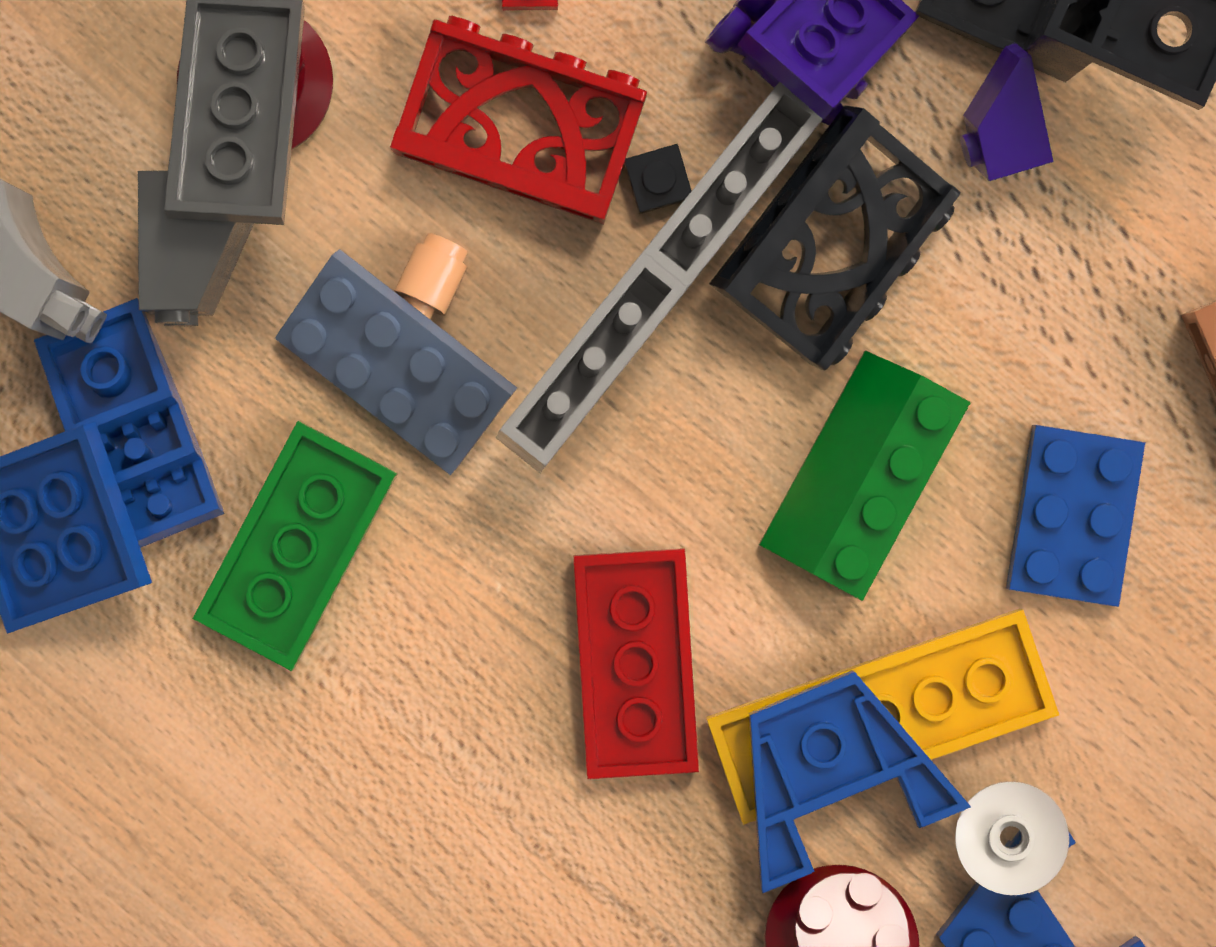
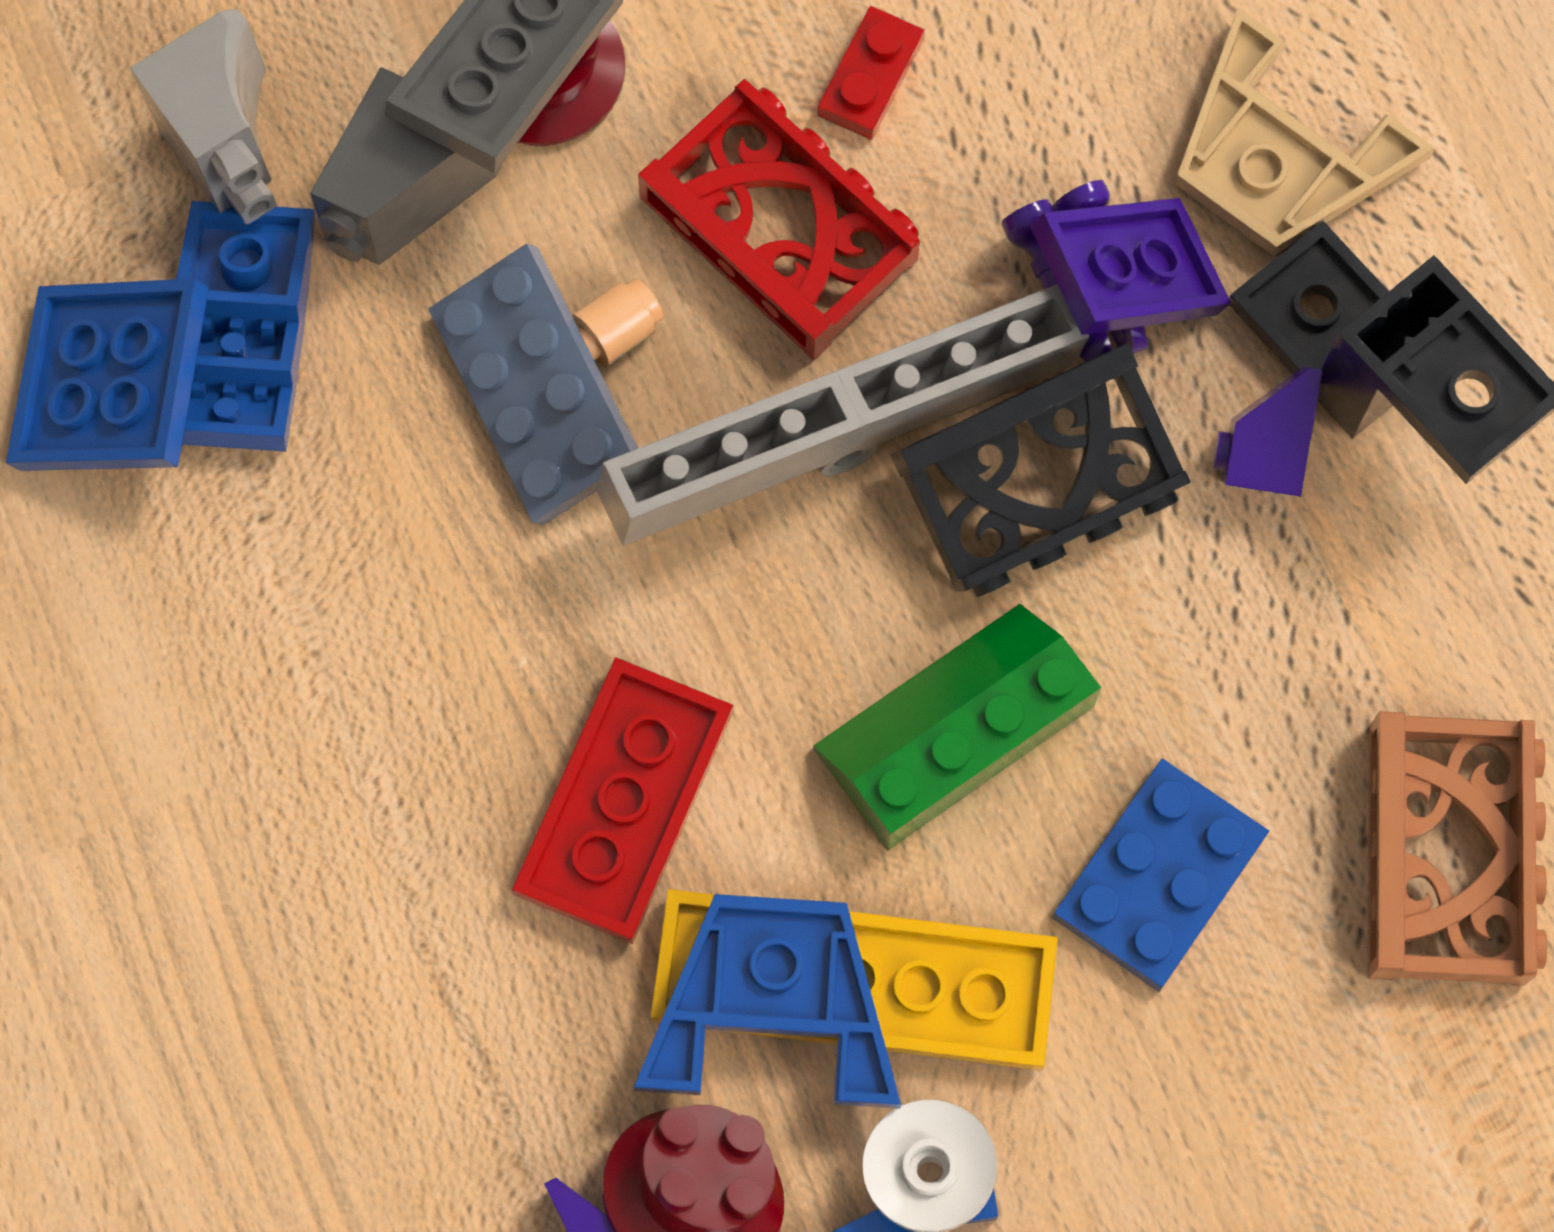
camera: 25 degrees right, 15 degrees down
(295, 545) = (339, 516): green plate -> none
(658, 178) = (888, 328): black plate -> none

